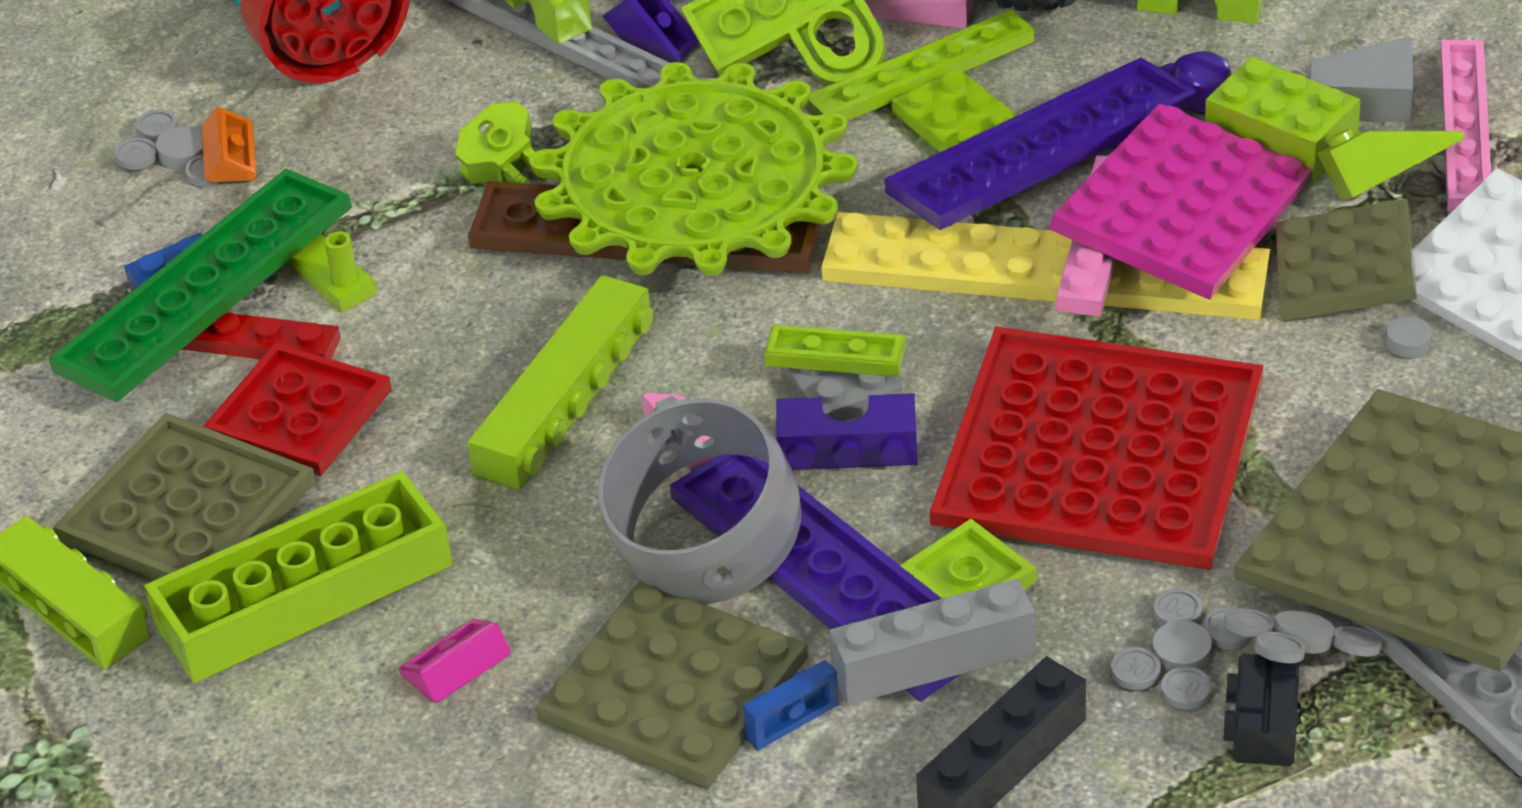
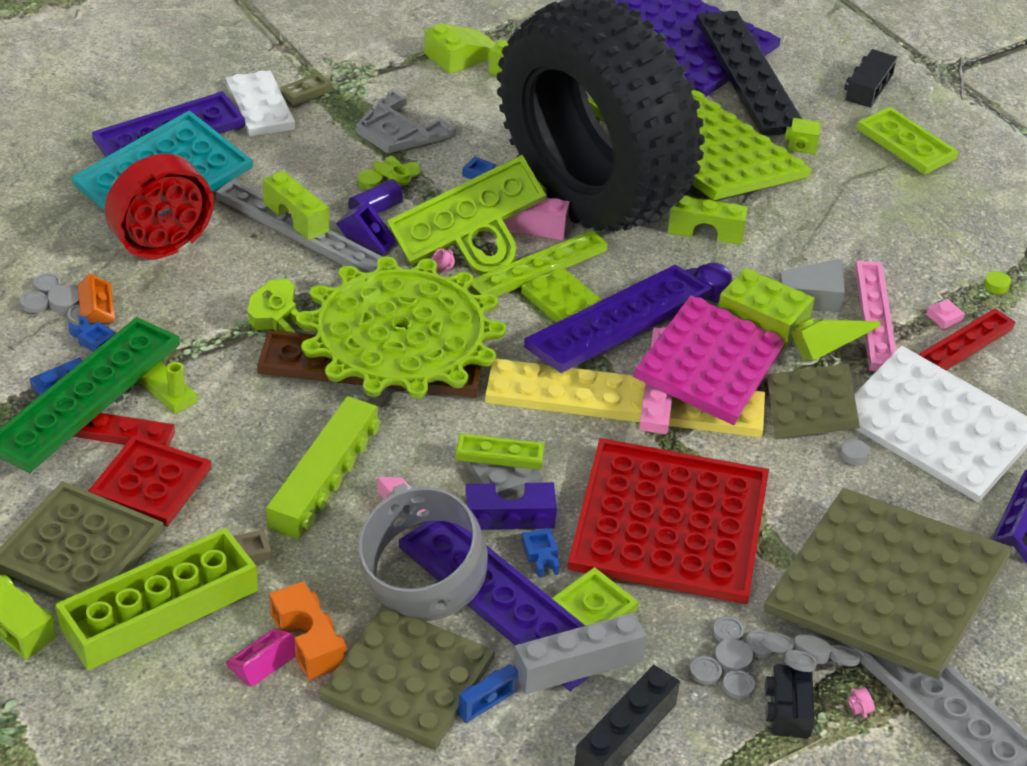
camera: 10 degrees left, 0 degrees up
(214, 198) = (90, 335): none -> blue plate
(450, 499) = (255, 545): none -> dark tan plate
(535, 641) = (298, 609): none -> orange arch
(770, 66) = (444, 259): none -> bright pink plate
(892, 495) = (542, 549): none -> blue plate
(1378, 710) = (861, 702): none -> bright pink plate

